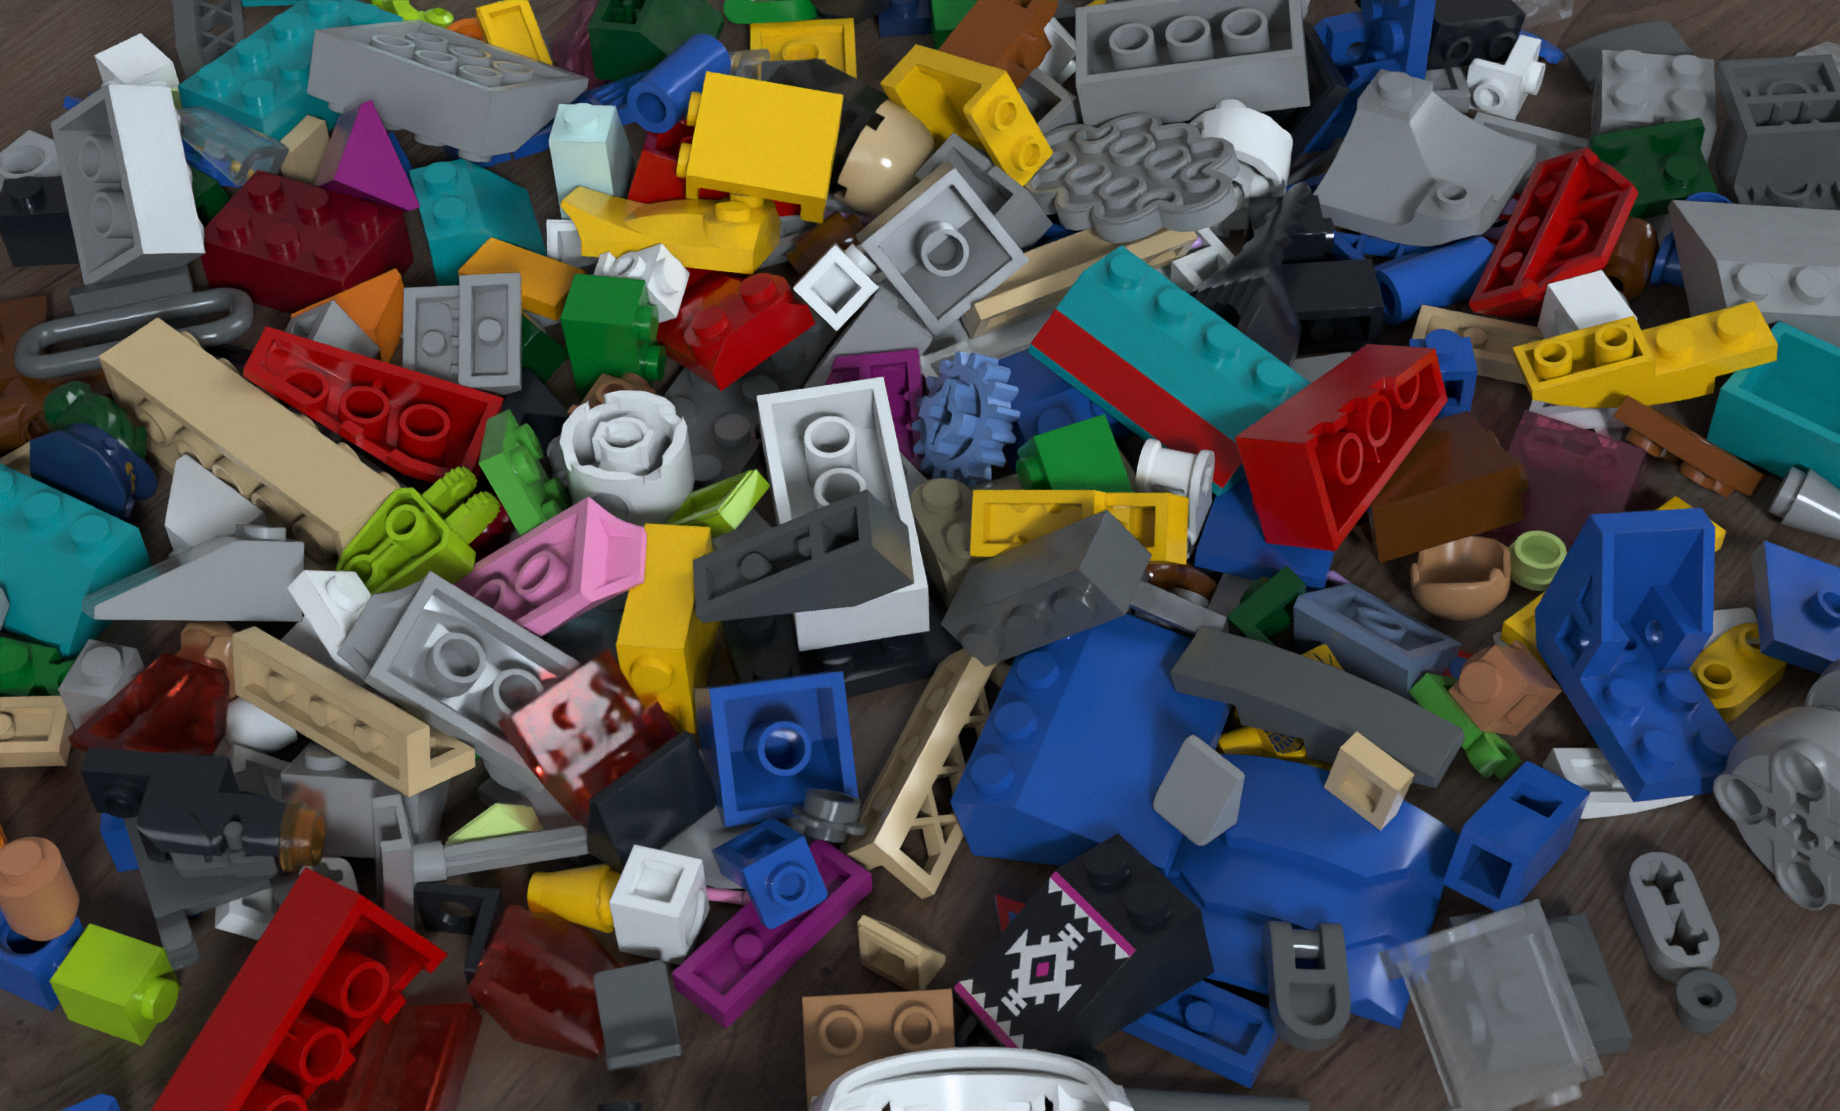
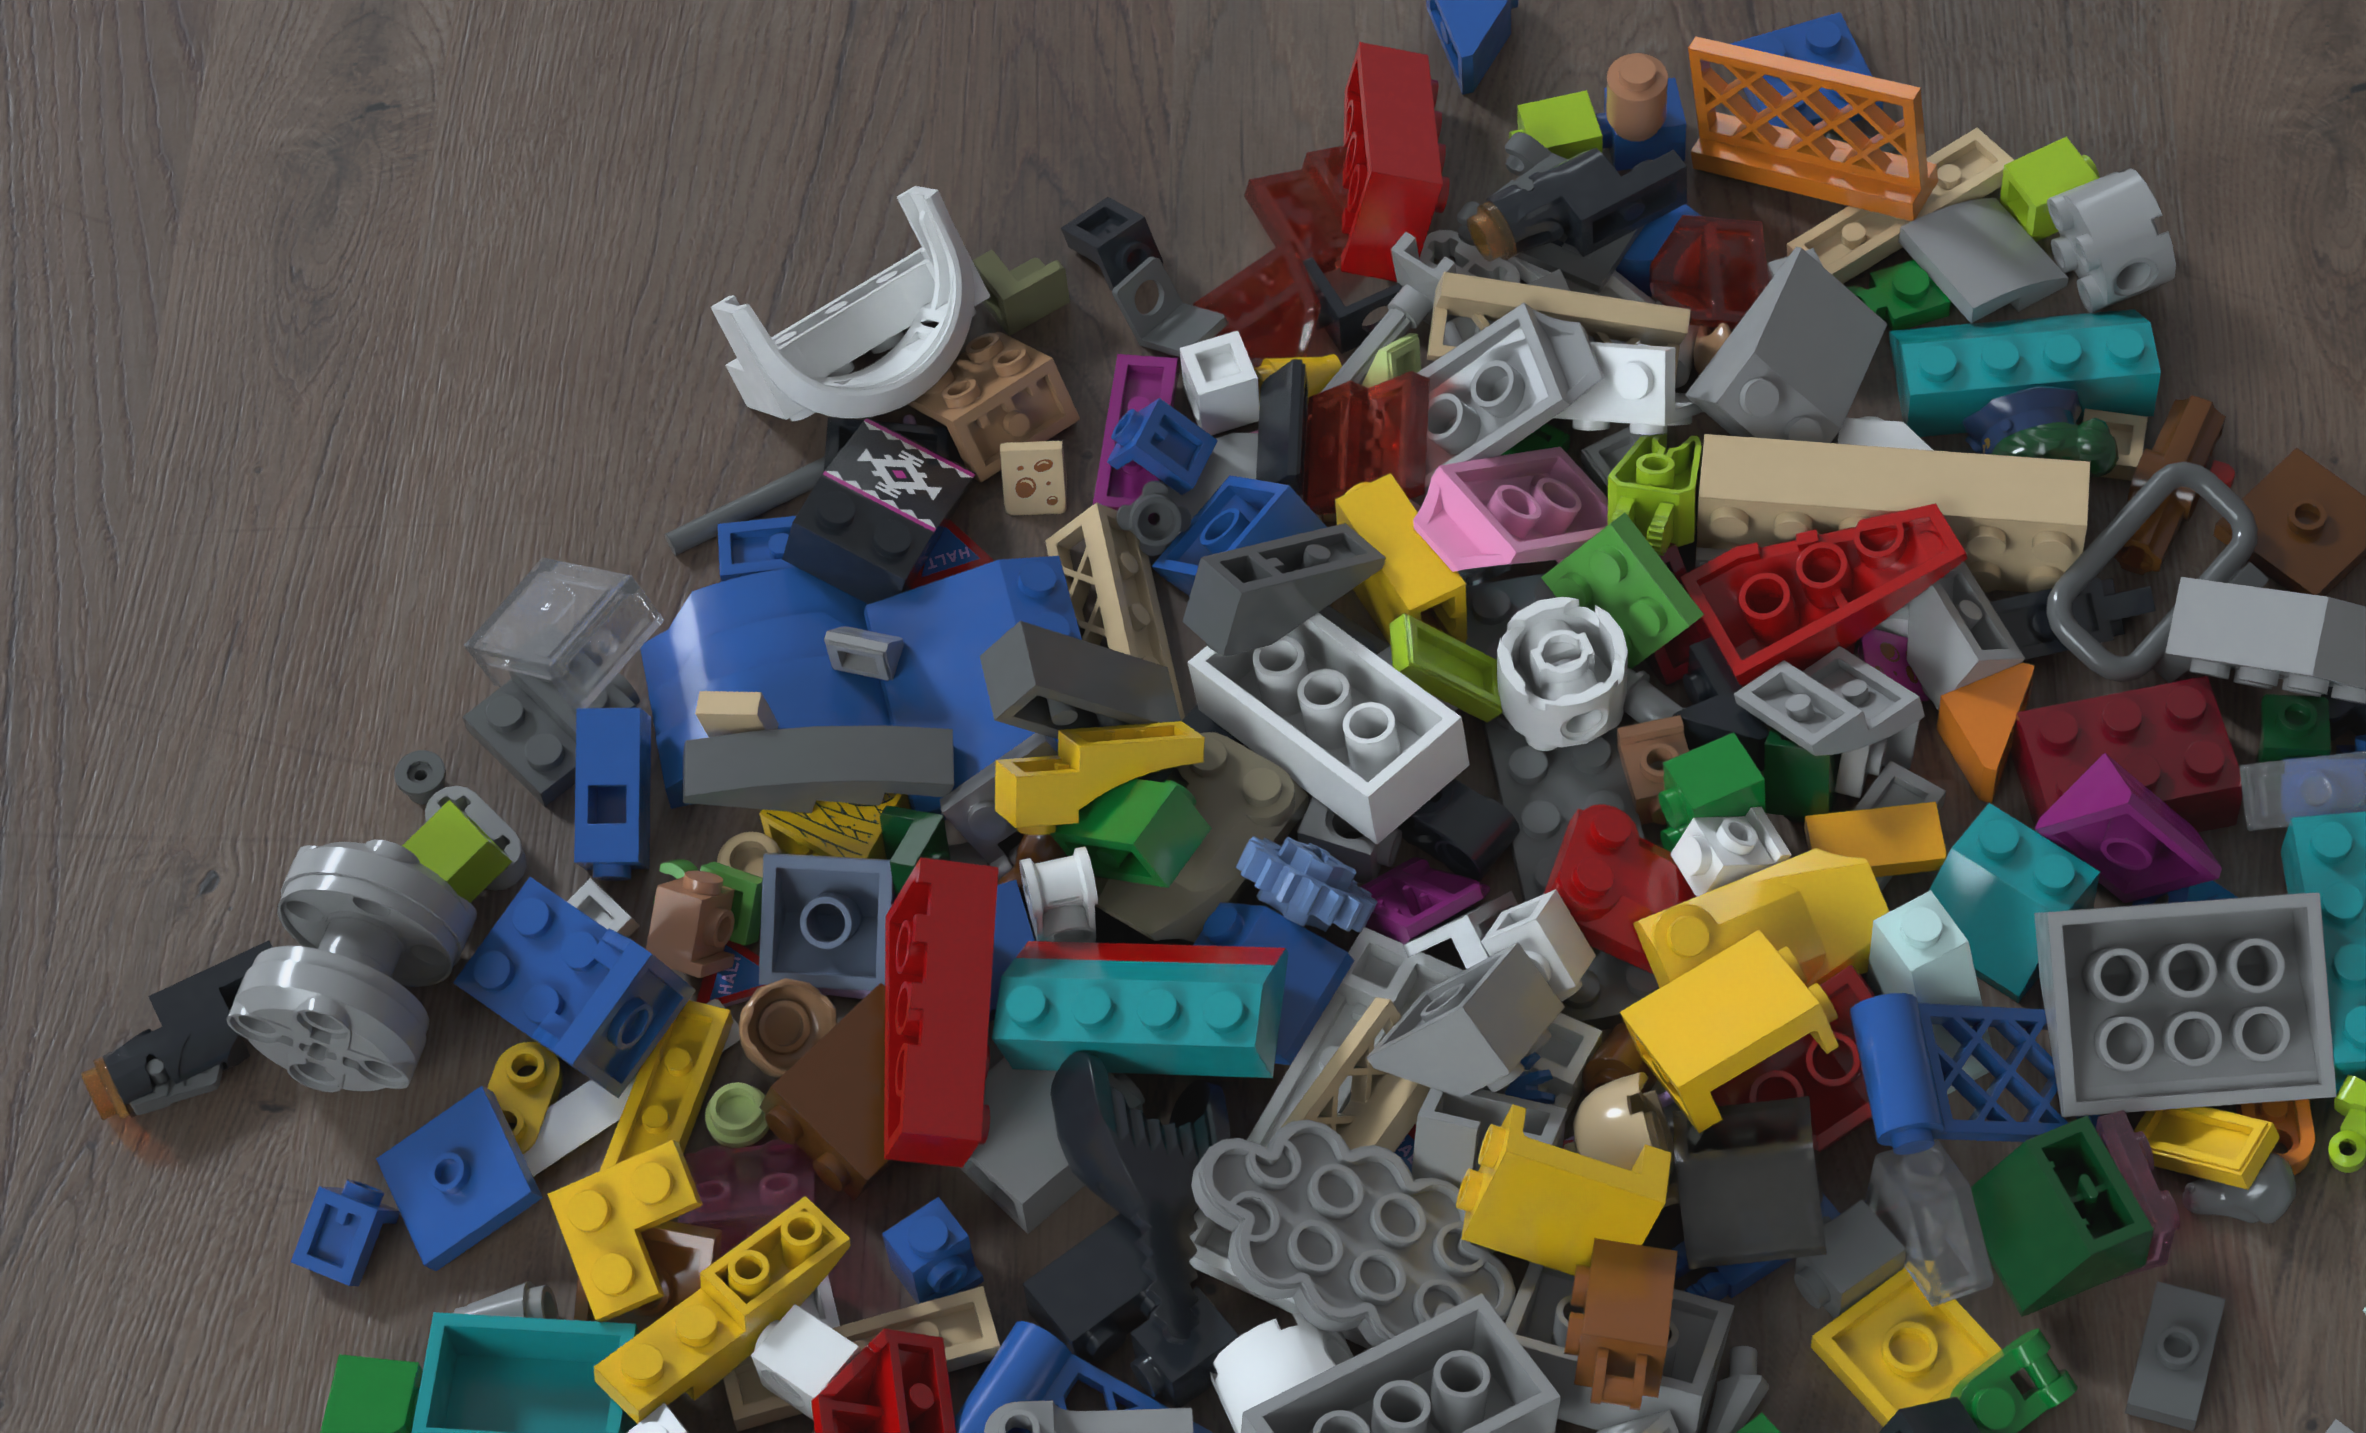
camera: 150 degrees right, 10 degrees up
(307, 149) = (2265, 869): tan tile -> none
(1307, 1004) = (697, 559): dark grey plate -> none
(1711, 426) = (605, 1222): none -> yellow plate
(1714, 853) = (458, 851): none -> lime brick

